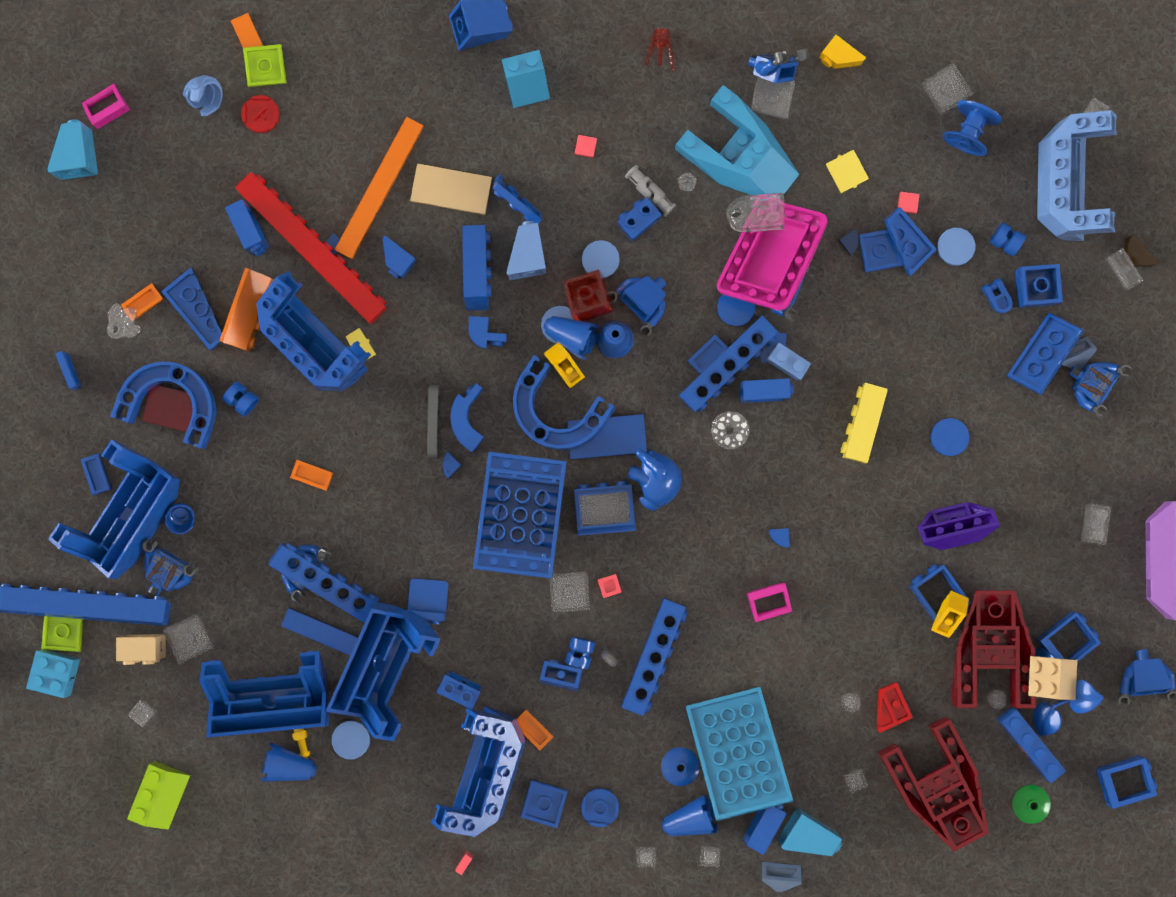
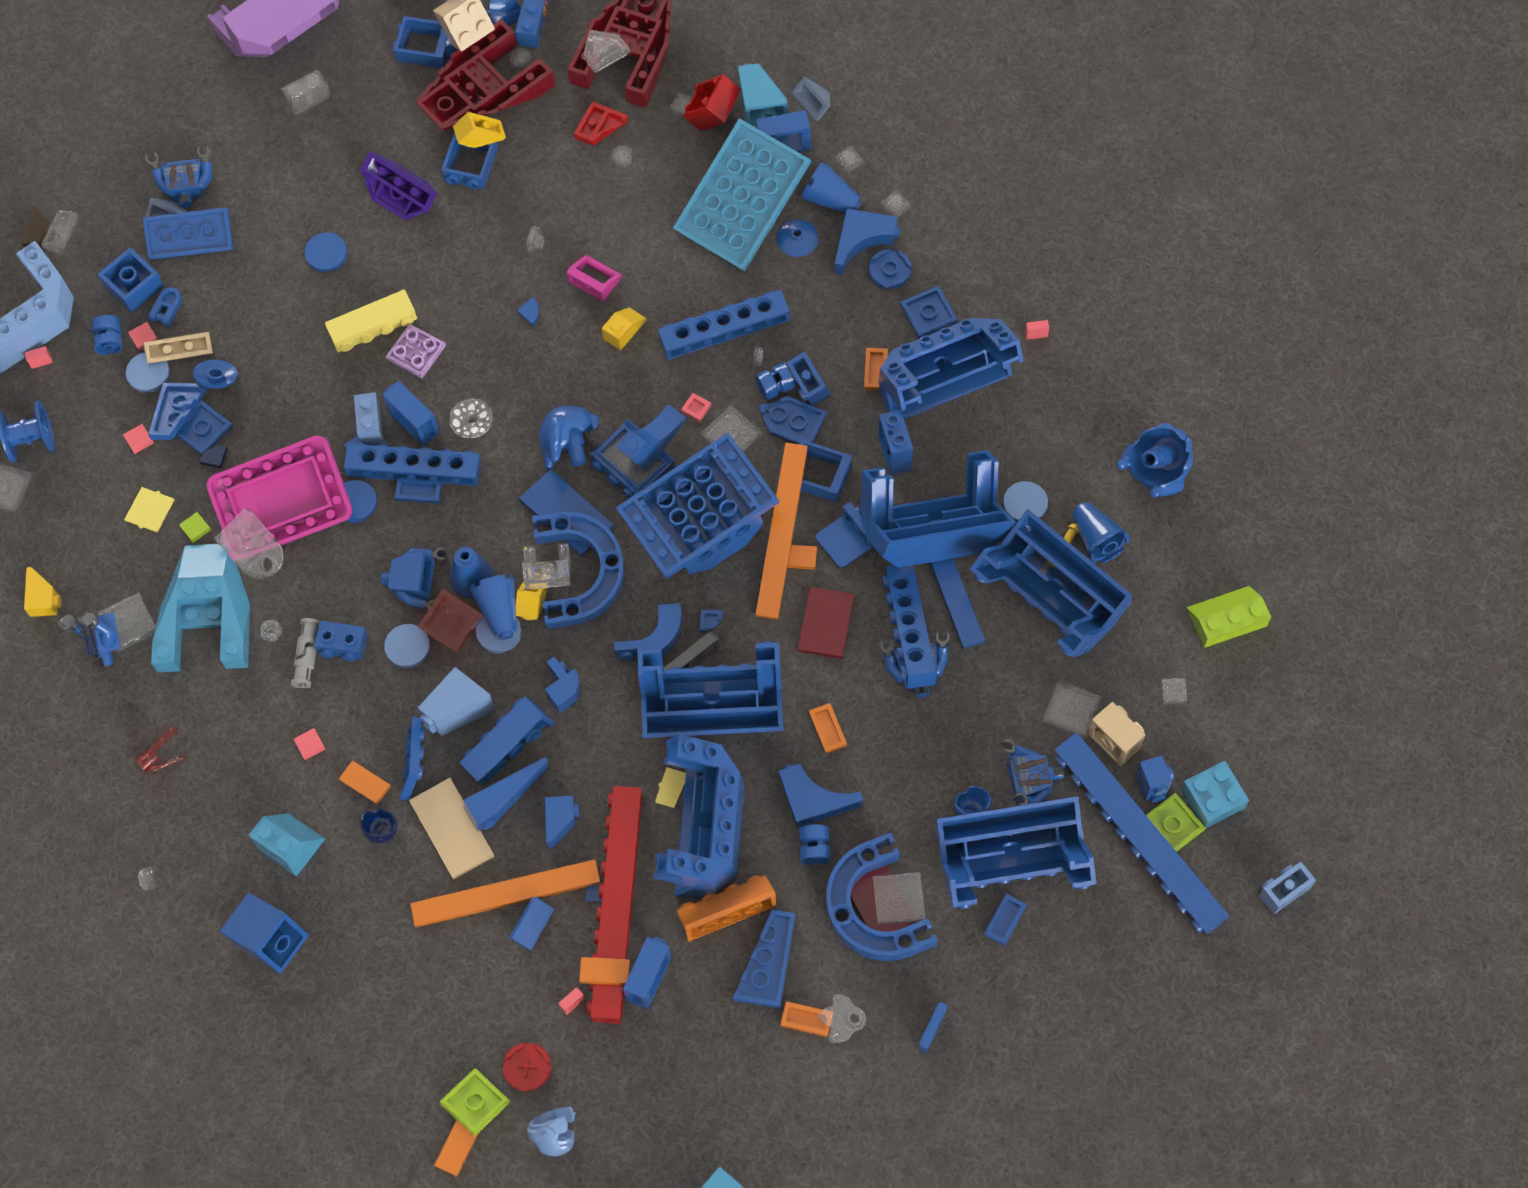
camera: 130 degrees left, 20 degrees down
(92, 643) = (1154, 779): none -> blue brick
(161, 419) = (898, 898): none -> clear plate
(269, 202) = (604, 971): none -> orange tile
(272, 420) = (811, 802): none -> blue arch
(274, 170) = (571, 1001): none -> coral tile
(295, 851) = (1159, 459): none -> blue piece
(345, 187) = (531, 923): none -> blue tile
(380, 409) = (711, 698): none -> blue wedge
(382, 536) = (826, 623): none -> dark red tile
(441, 225) = (494, 801): none -> blue slope
(446, 556) = (802, 557): none -> orange tile
(465, 560) = (781, 531): none -> orange tile
(472, 634) = (832, 456): none -> blue window
(483, 147) = (372, 820): none -> clear blue hair
(529, 160) = (364, 782): none -> orange tile
(543, 641) = (793, 419): none -> blue tile
(569, 386) = (546, 573): none -> clear panel
(600, 530) = (647, 444): none -> blue arch
(643, 814) = (863, 231): none -> blue arch
(712, 589) = (622, 327): none -> yellow slope
(807, 190) = (195, 527): none -> lime tile
(817, 436) = (415, 351): none -> lavender tile
(832, 584) = (535, 240): none -> clear plate
(834, 798) = (711, 102): none -> red container
(920, 288) = (215, 374): none -> blue dish
(943, 758) = (604, 49): none -> clear plate
(957, 279) = (178, 347): none -> tan slope
(988, 264) = (142, 334): none -> coral tile
(1029, 181) = (38, 357): none -> coral tile

